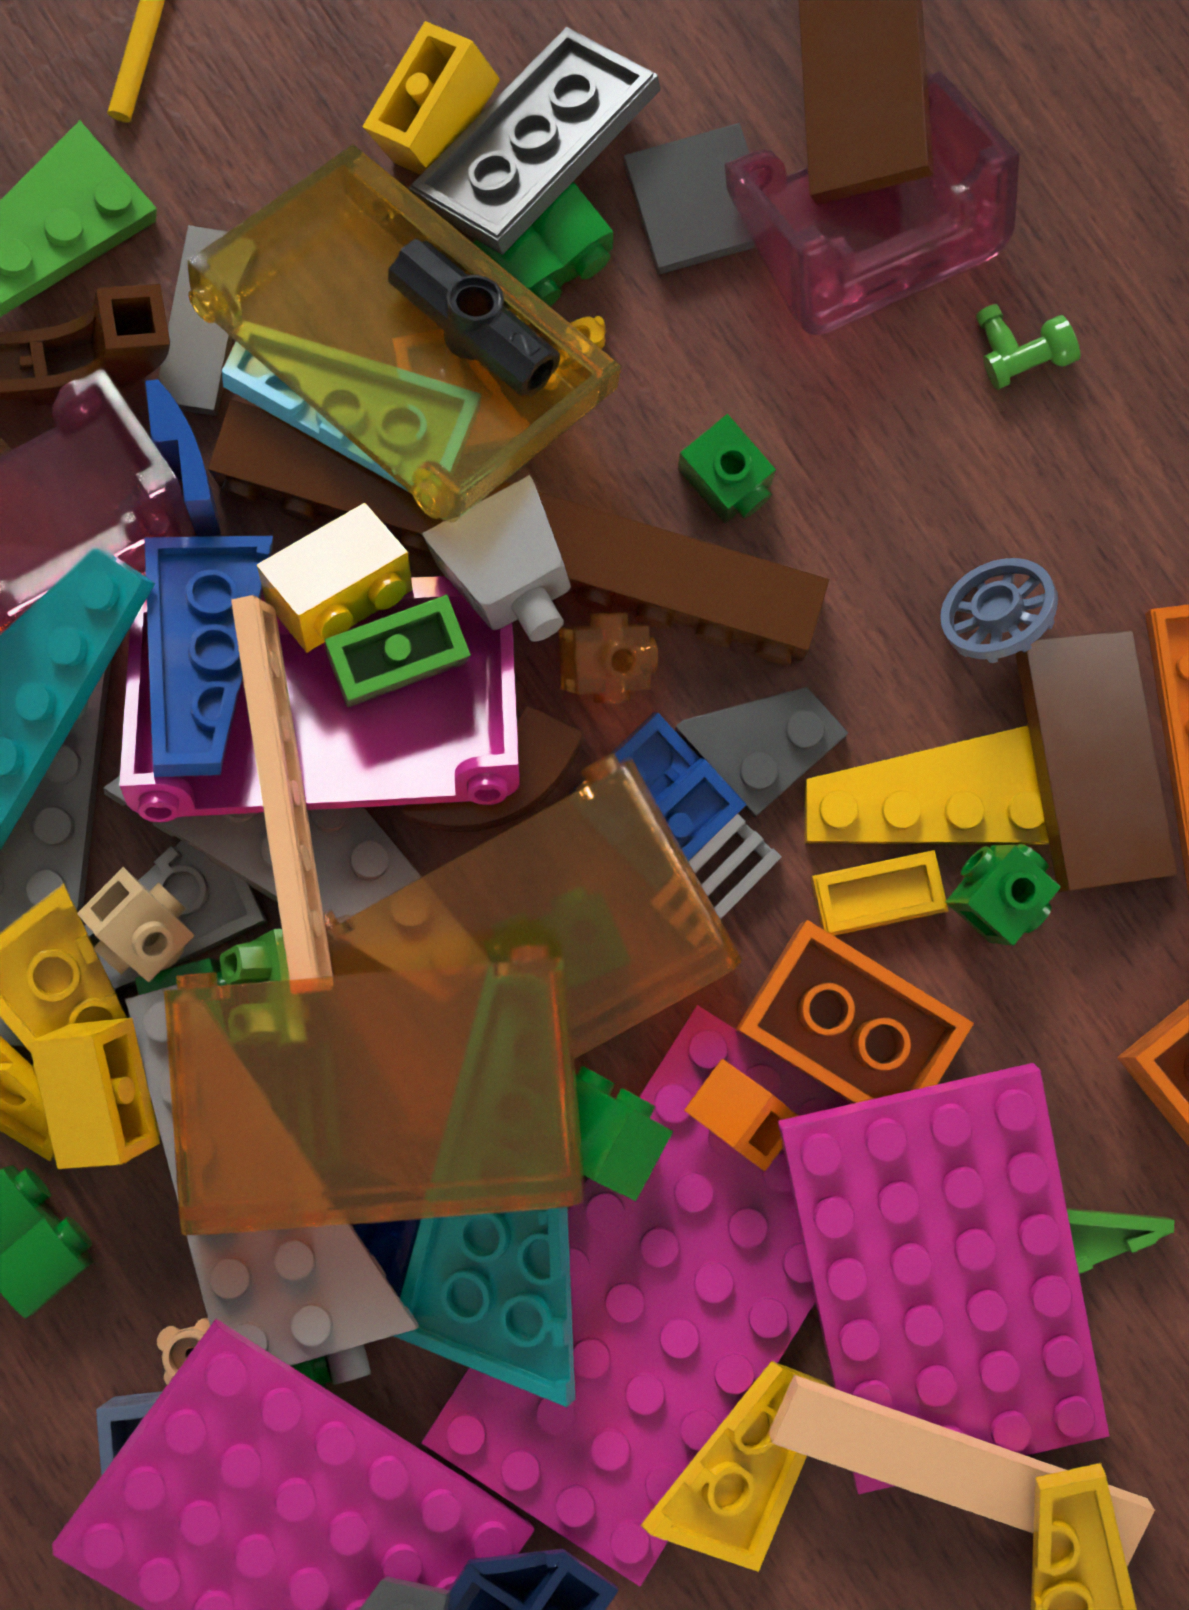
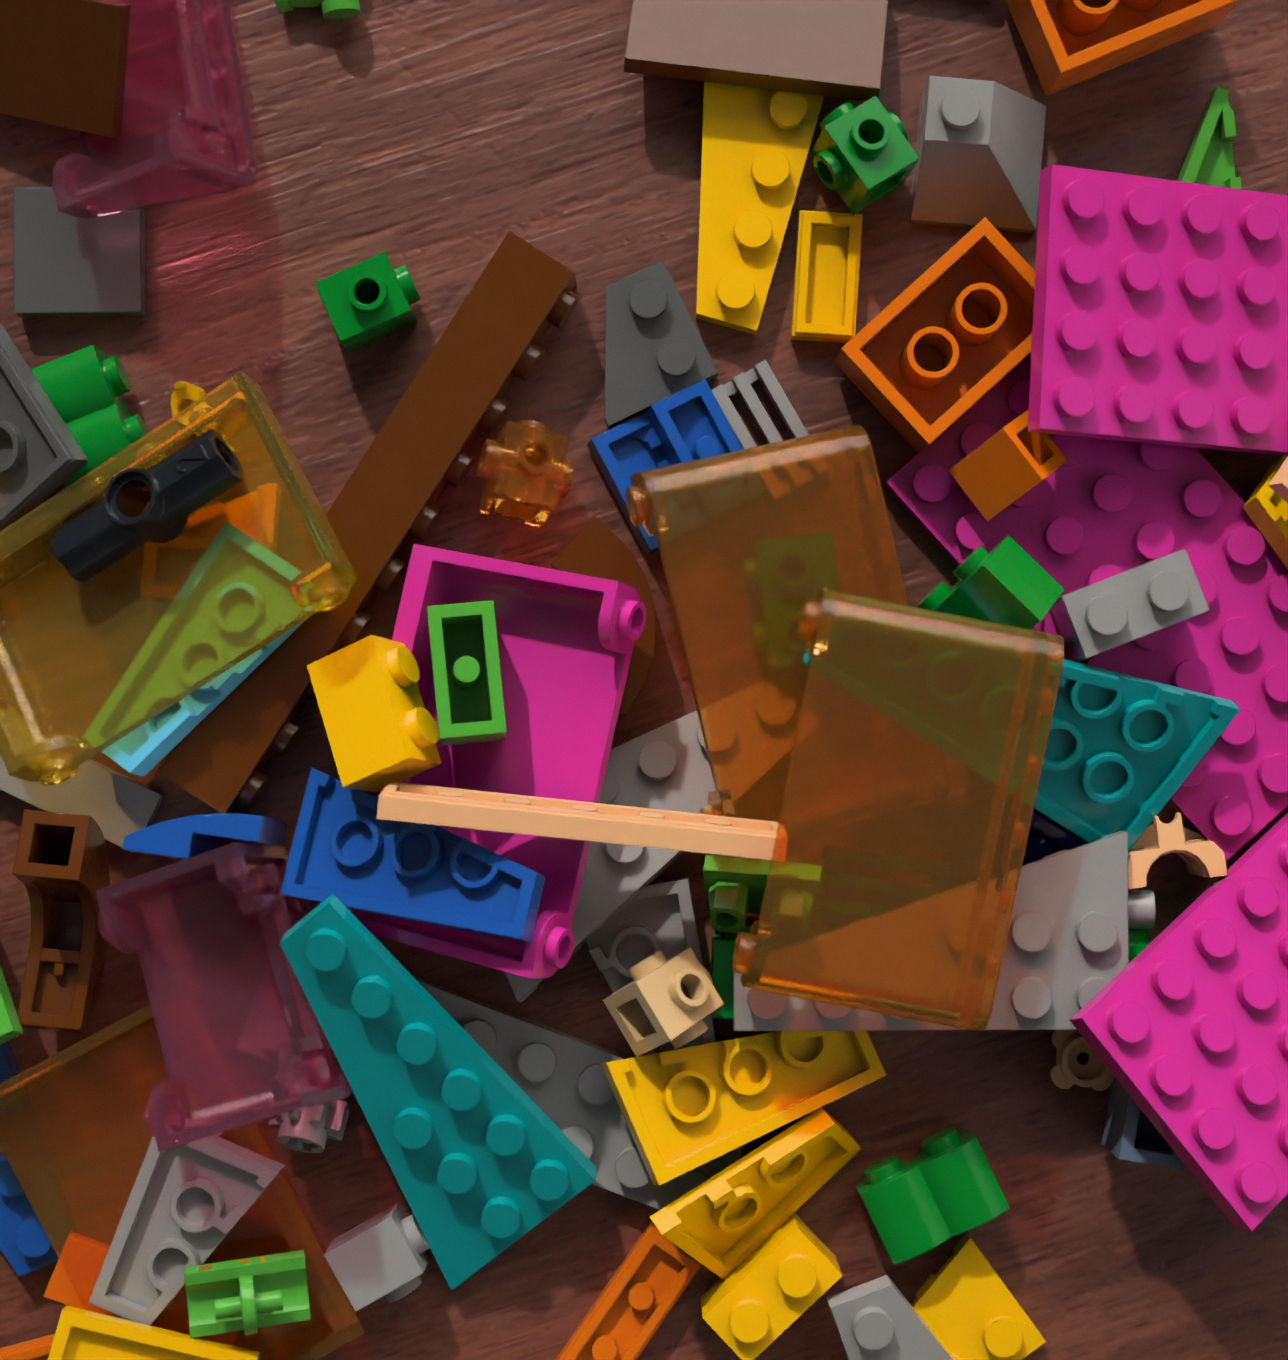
camera: 75 degrees left, 5 degrees up
(94, 1093) = (818, 1083): yellow brick -> none
(427, 1380) = (1200, 856): none -> light nougat piece
(505, 560) = (406, 540): light grey torso -> none
(638, 1269) = (1128, 605): none -> light grey brick
(999, 609) = (584, 74): sand blue wheel -> none
(1038, 1005) = (977, 155): none -> light grey slope

